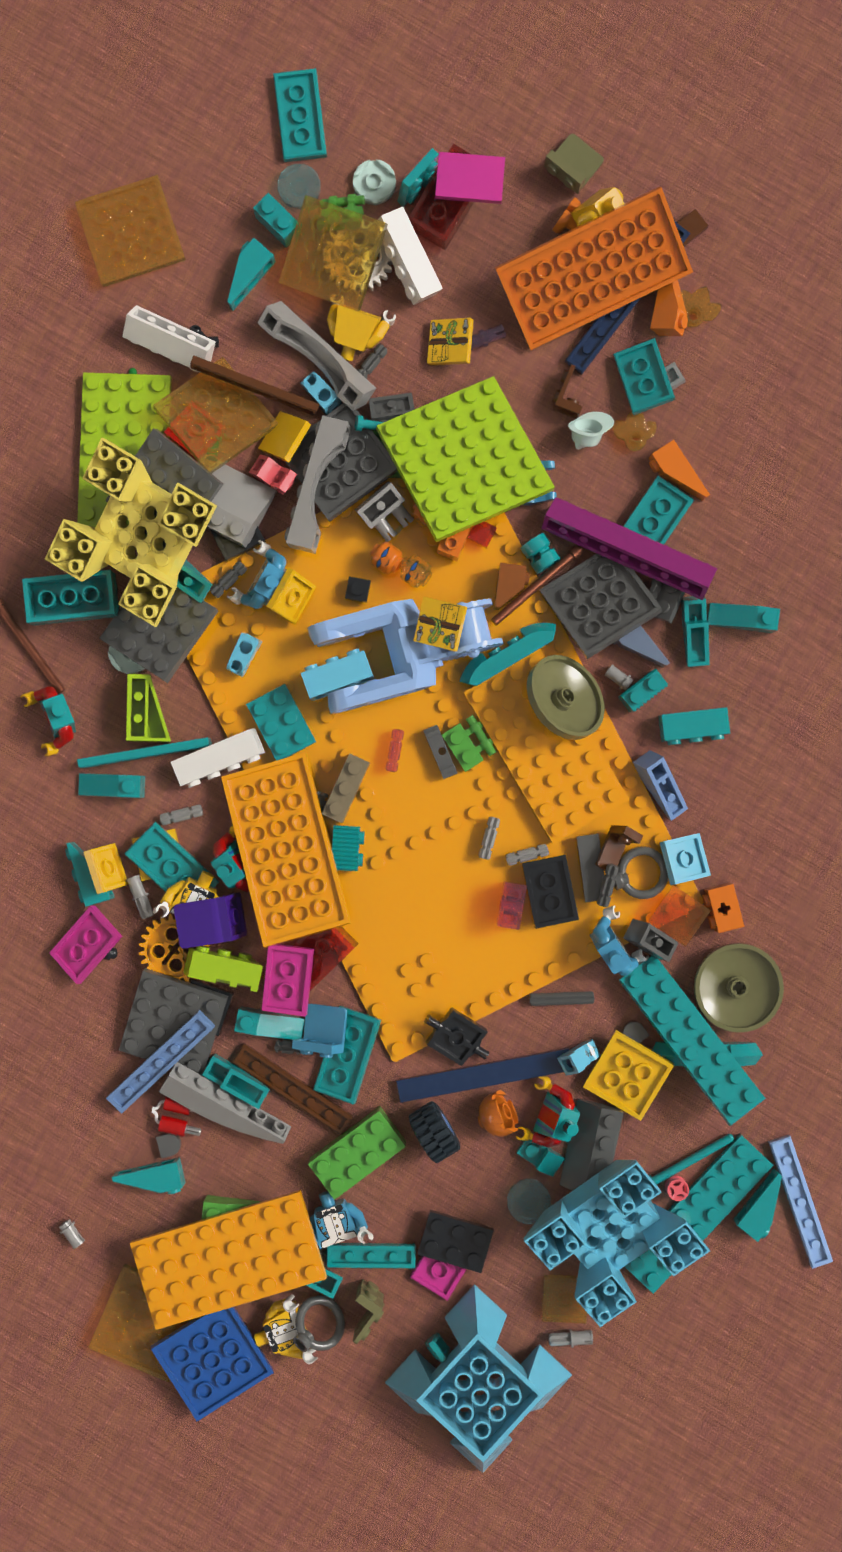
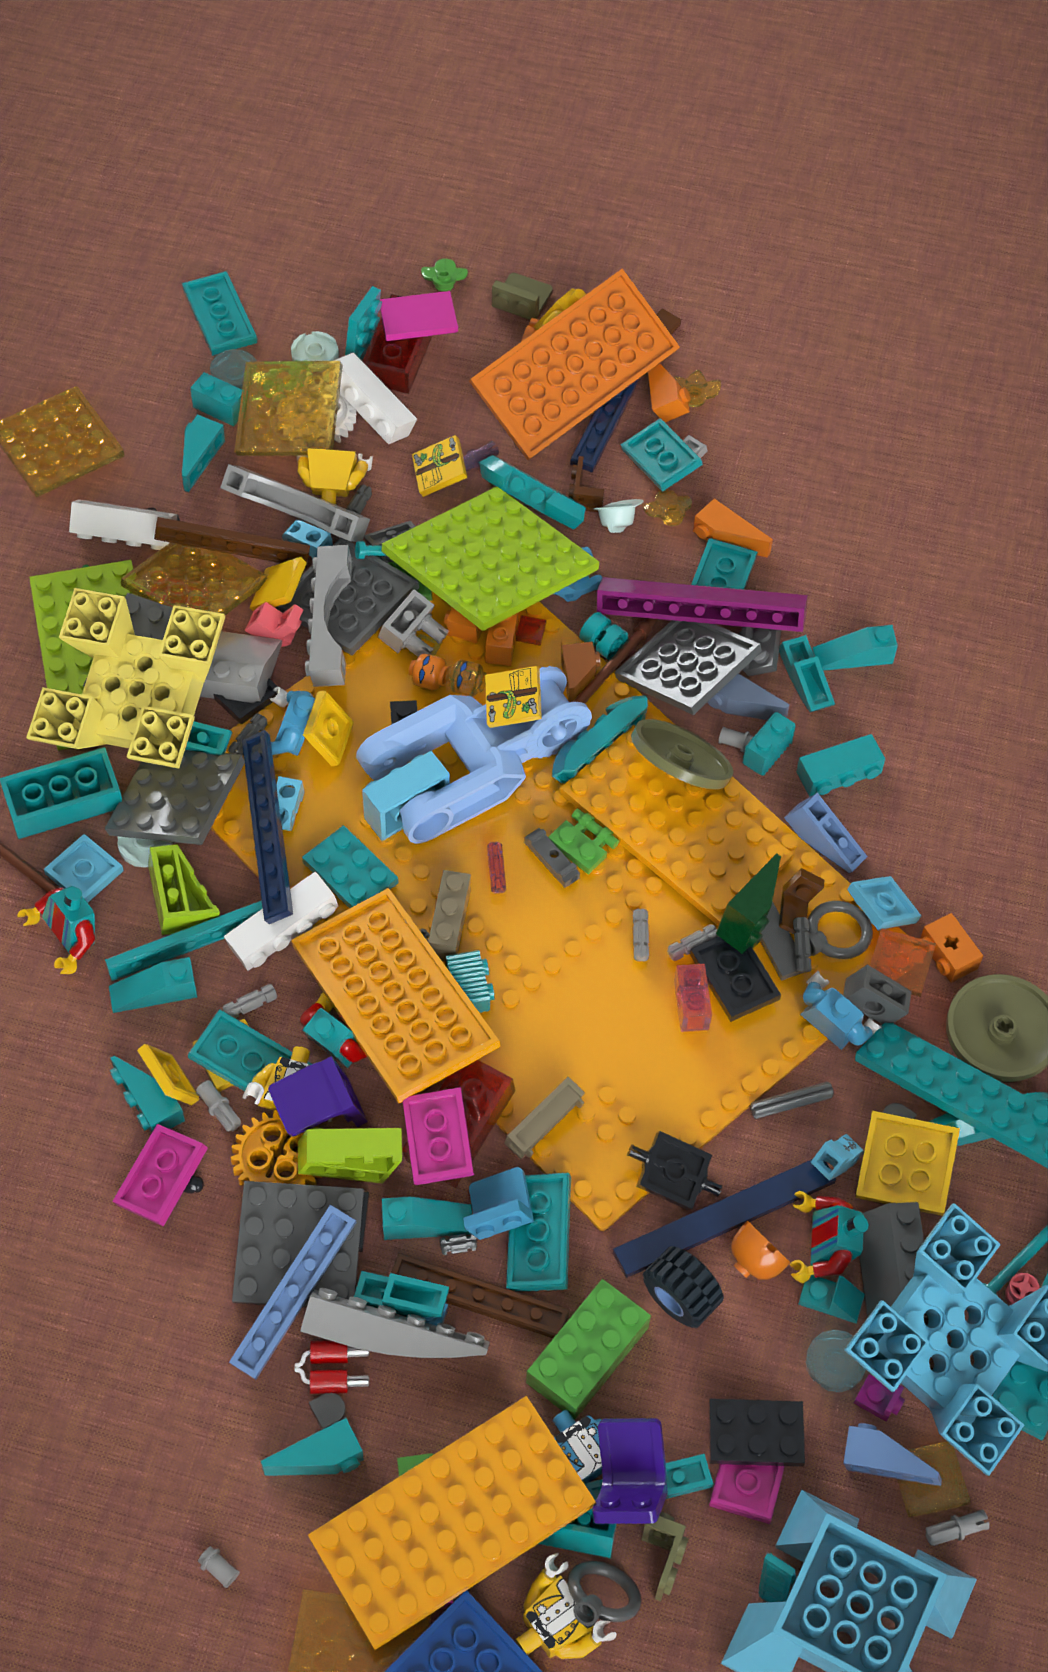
camera: 20 degrees left, 30 degrees down
(77, 668) = (84, 867): none -> medium azure plate
(222, 676) = (267, 828): none -> dark blue tile
(355, 1267) = (632, 1471): none -> dark purple piece
(373, 973) = (544, 1118): none -> dark tan container
(511, 118) = (444, 274): none -> bright green plate
(522, 389) = (532, 491): none -> teal brick
(536, 1283) = (878, 1454): none -> medium blue slope
(576, 853) = (748, 910): none -> dark green slope

